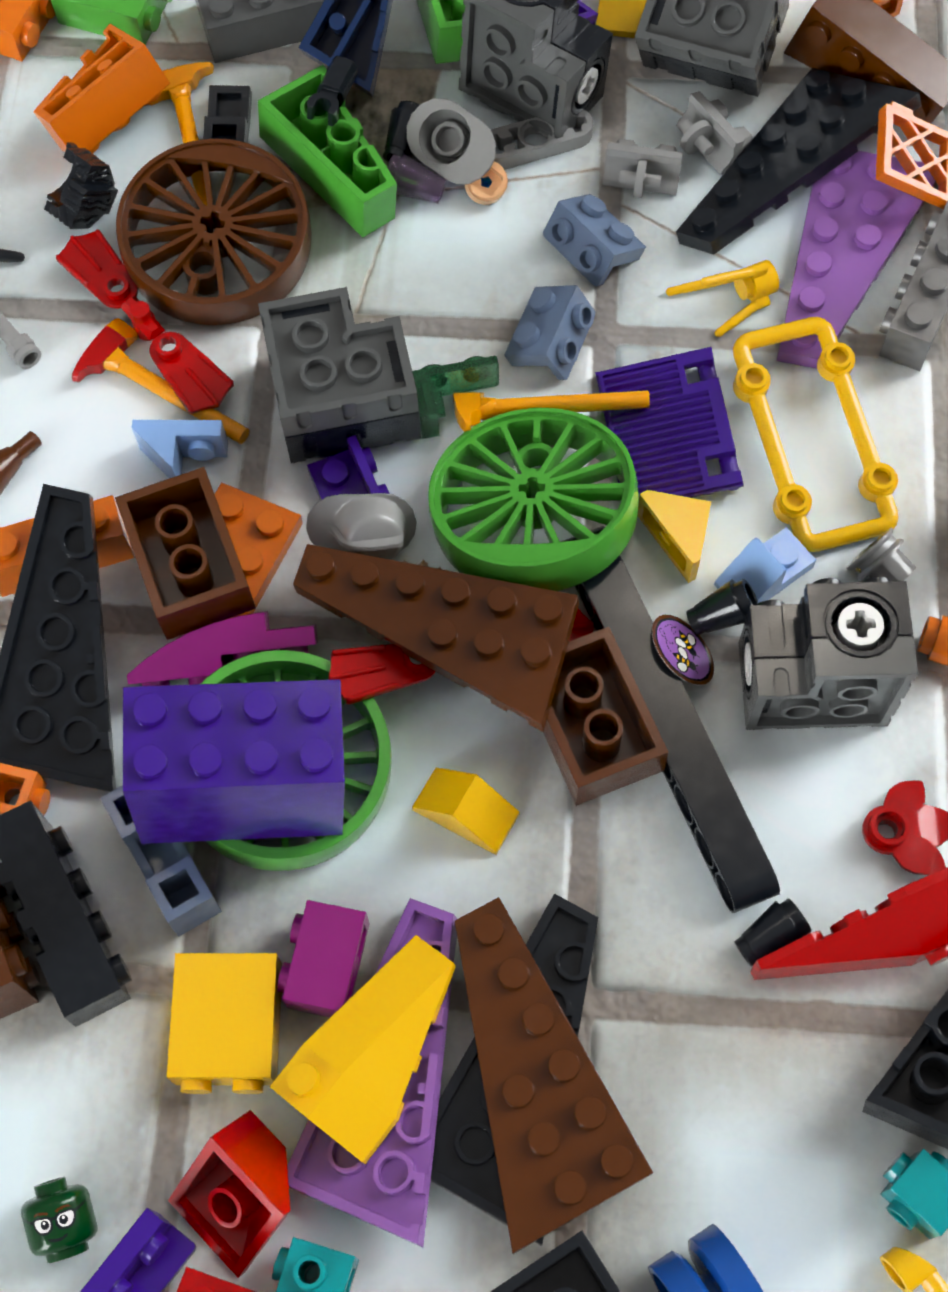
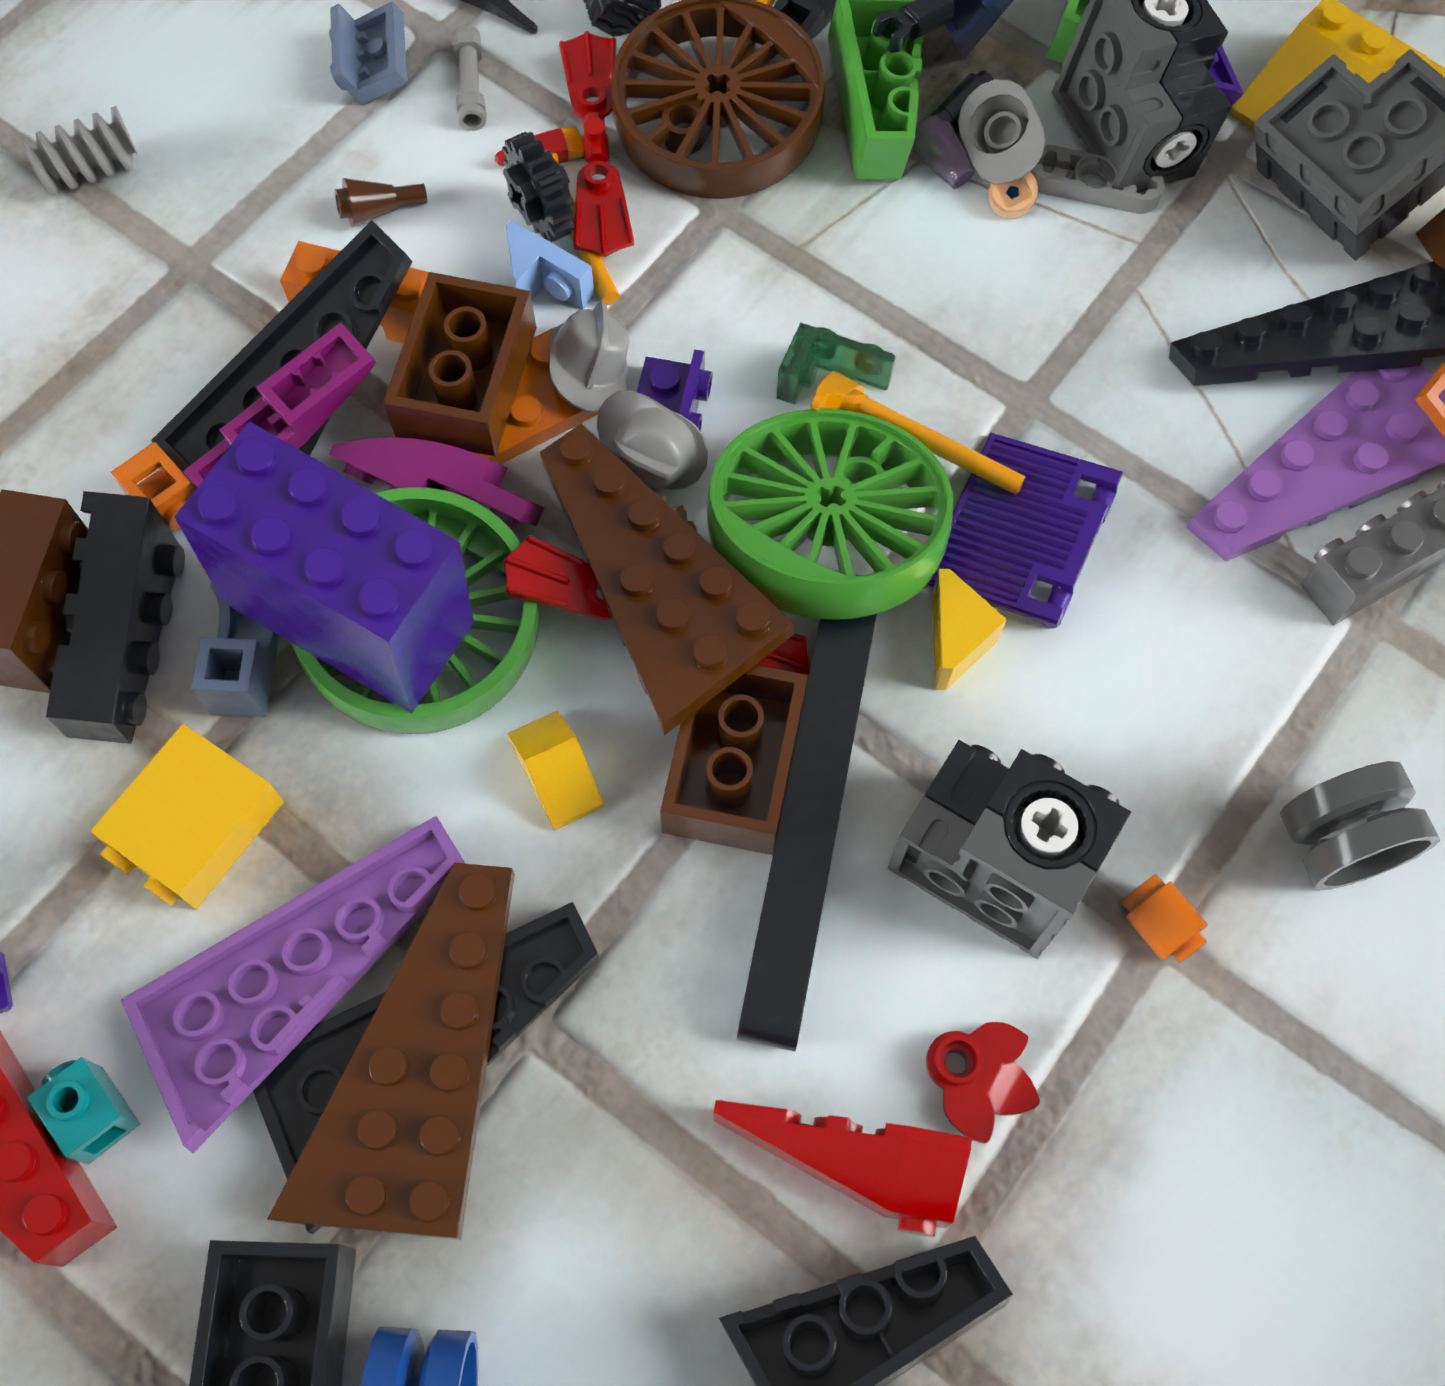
camera: 30 degrees right, 0 degrees up
(77, 679) = (298, 395): none -> magenta slope
(135, 382) = (538, 186): none -> black gear
(236, 1191) = (78, 976): red slope -> none
(268, 491) = (589, 358): none -> light grey piece
(324, 958) = (313, 820): magenta brick -> none
(338, 375) = (722, 283): dark grey piece -> none
(363, 1056) = (262, 934): yellow wedge -> none
(552, 329) = (975, 366): sand blue bracket -> none
(591, 237) = (1080, 300): sand blue bracket -> none
(642, 167) = (1180, 262): light grey hips -> none
(682, 650) = (874, 748): sticker -> none
(710, 133) = (1275, 265): light grey hips -> none
(722, 608) = (940, 730): black cone -> none
(750, 283) = (1213, 433): yellow plant -> none
(769, 565) = (1013, 720): light blue slope -> none
(772, 930) = (761, 1082): black cone -> none
(793, 500) = (1099, 673): yellow bar -> none
(883, 559) = (1147, 790): light grey piece -> none

